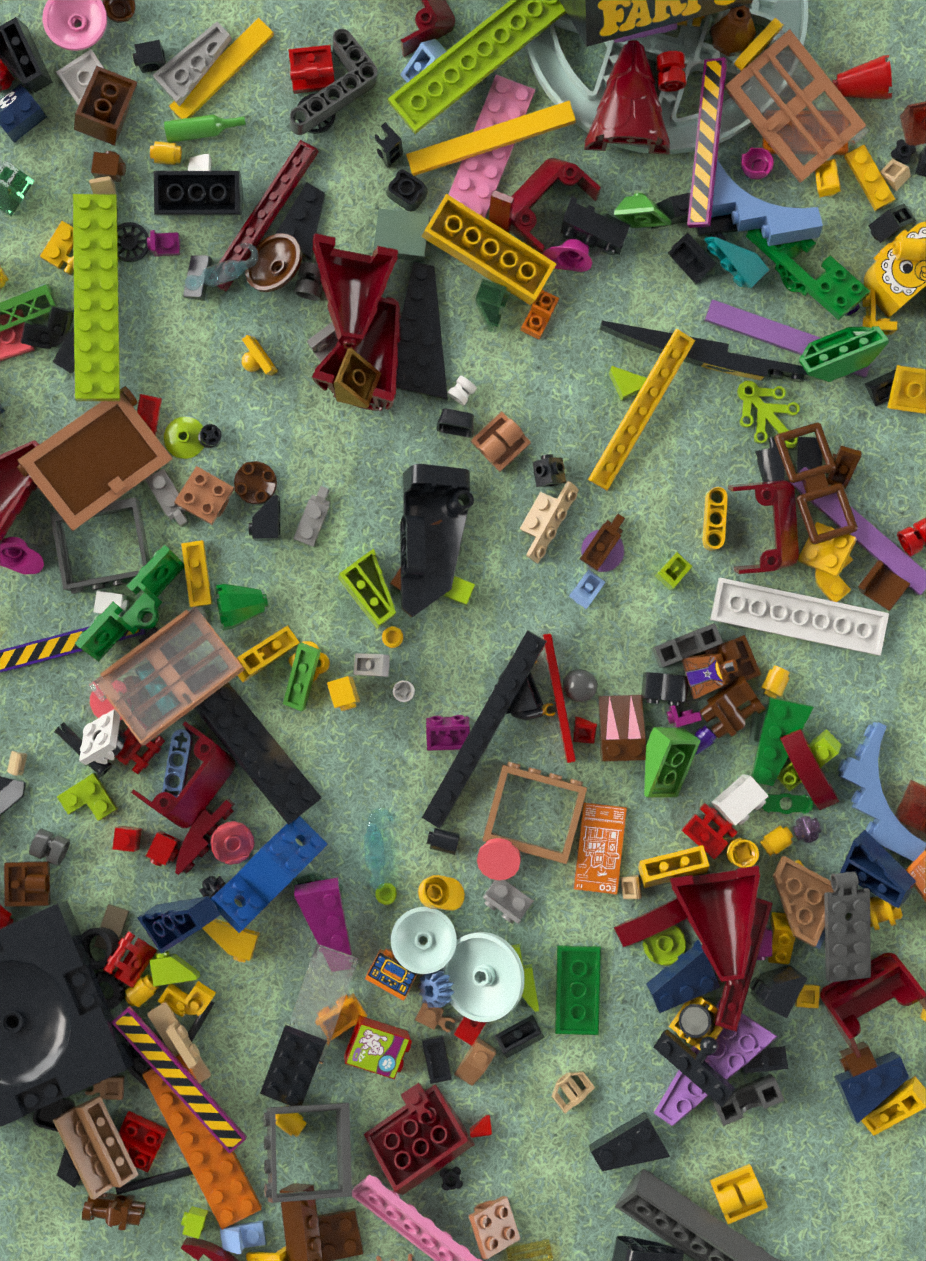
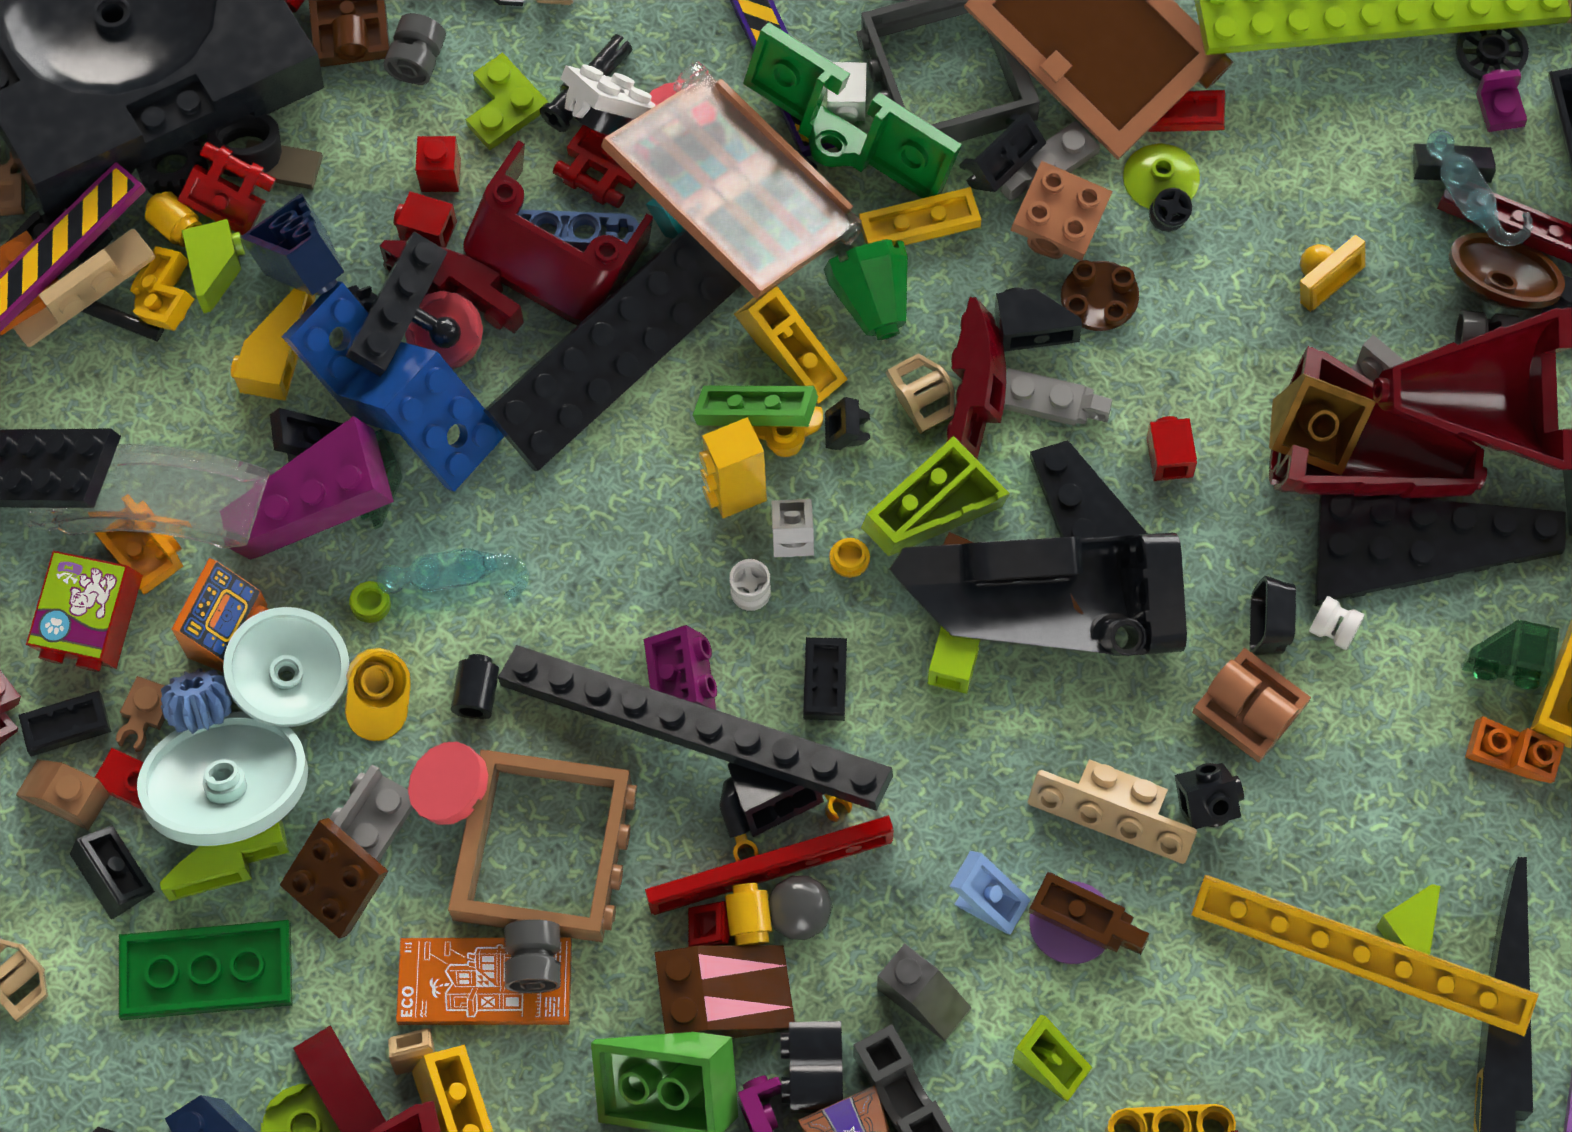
camera: 85 degrees right, 20 degrees down
(165, 520) = (1005, 154): none -> black hinge
(222, 866) = (399, 305): none -> black plate
(289, 921) = (297, 431): none -> black slope
(290, 552) = (982, 367): none -> dark red slope
(302, 585) = (907, 393): none -> tan piece
(315, 630) = (844, 423): none -> black tile
(352, 459) = (1171, 448): none -> red brick
(375, 511) = (1079, 497): none -> black wing
(460, 658) = (825, 679): none -> black plate
(541, 921) = (333, 878): none -> reddish brown plate
(584, 711) = (748, 915): none -> yellow brick
(596, 823) = (532, 956): none -> dark grey wheel
(633, 629) = (922, 992): none -> flat silver slope

